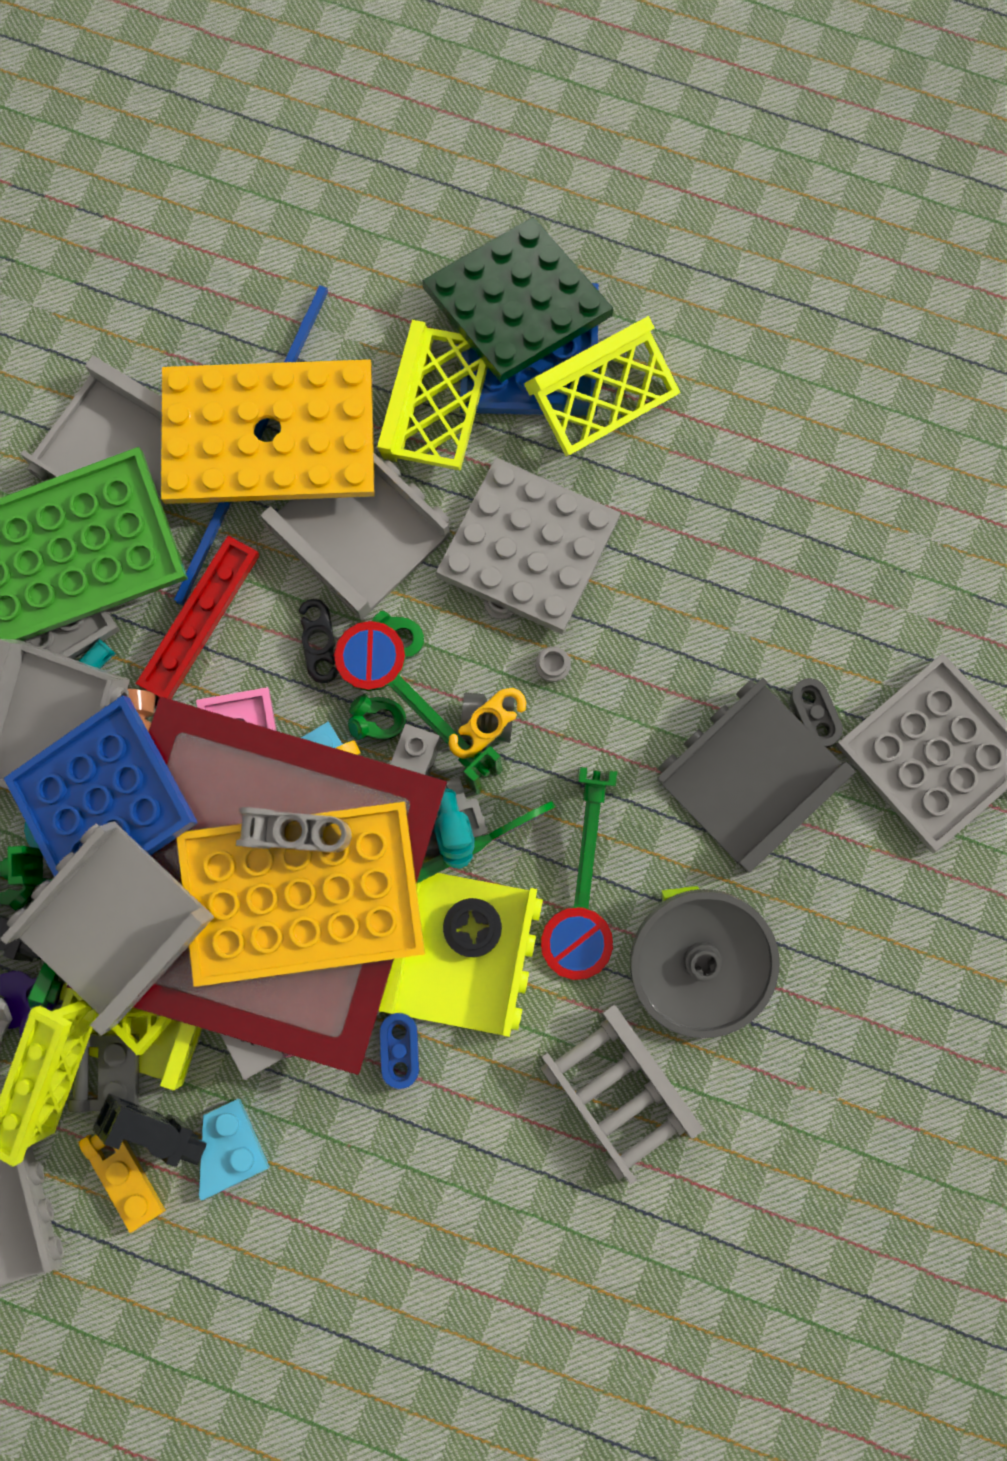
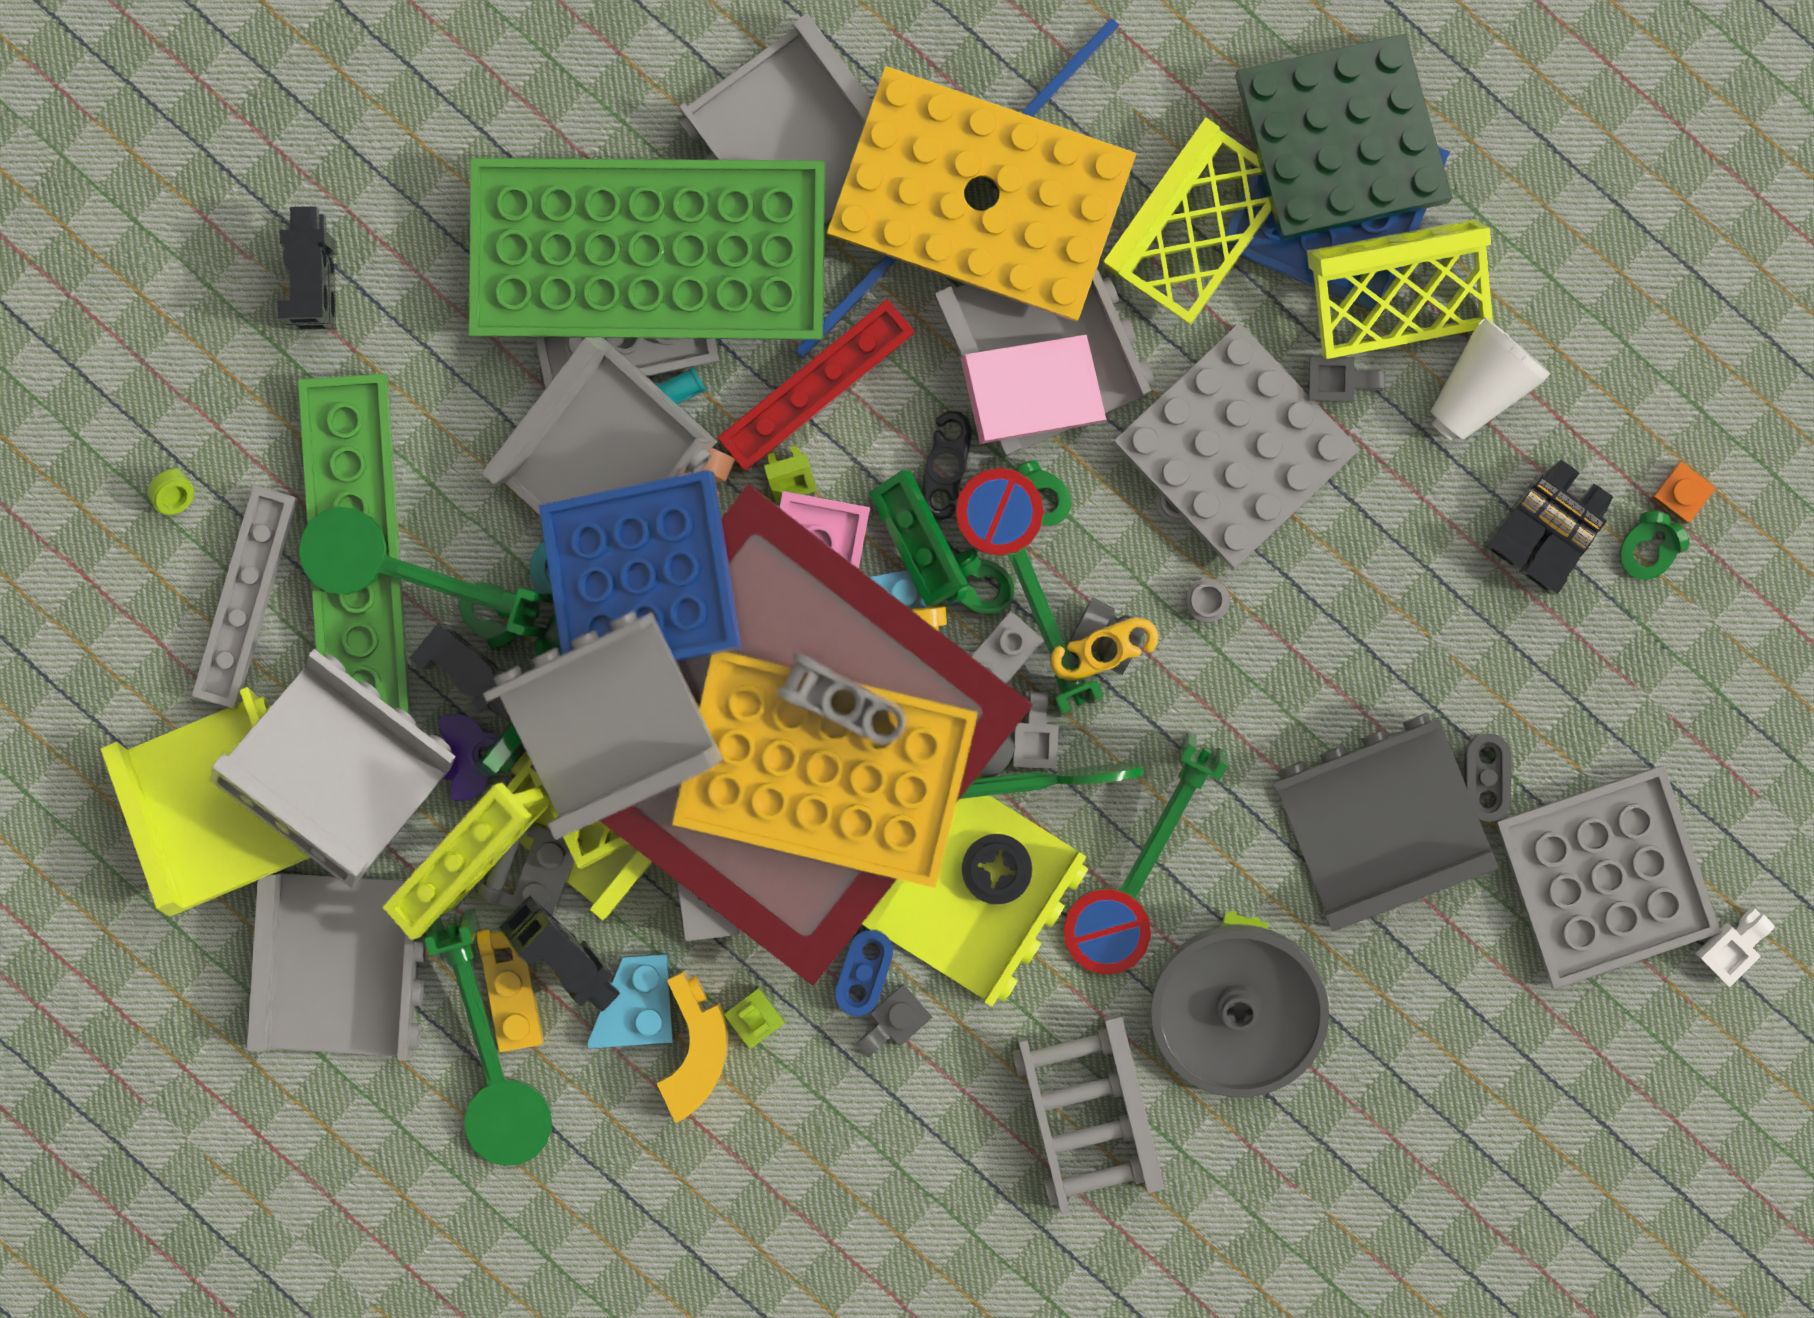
camera: 25 degrees right, 10 degrees up
(155, 1284) = (506, 1117): none -> green piece
(200, 687) = (790, 474): none -> lime tile
(296, 1164) = (708, 1047): none -> yellow arch
(316, 699) = (918, 538): none -> green plate
(326, 1122) = (754, 1018): none -> lime tile
(359, 556) = (1033, 389): none -> bright pink tile
(440, 1077) = (898, 1018): none -> dark grey plate
(453, 832) = (1018, 762): teal arm -> none
(583, 470) = (1336, 379): none -> dark grey plate
(692, 426) = (1485, 381): none -> white cone
(783, 503) = (1551, 512): none -> black hips
(867, 456) = (1683, 493): none -> orange plate
(876, 491) = (1674, 542): none -> green piece

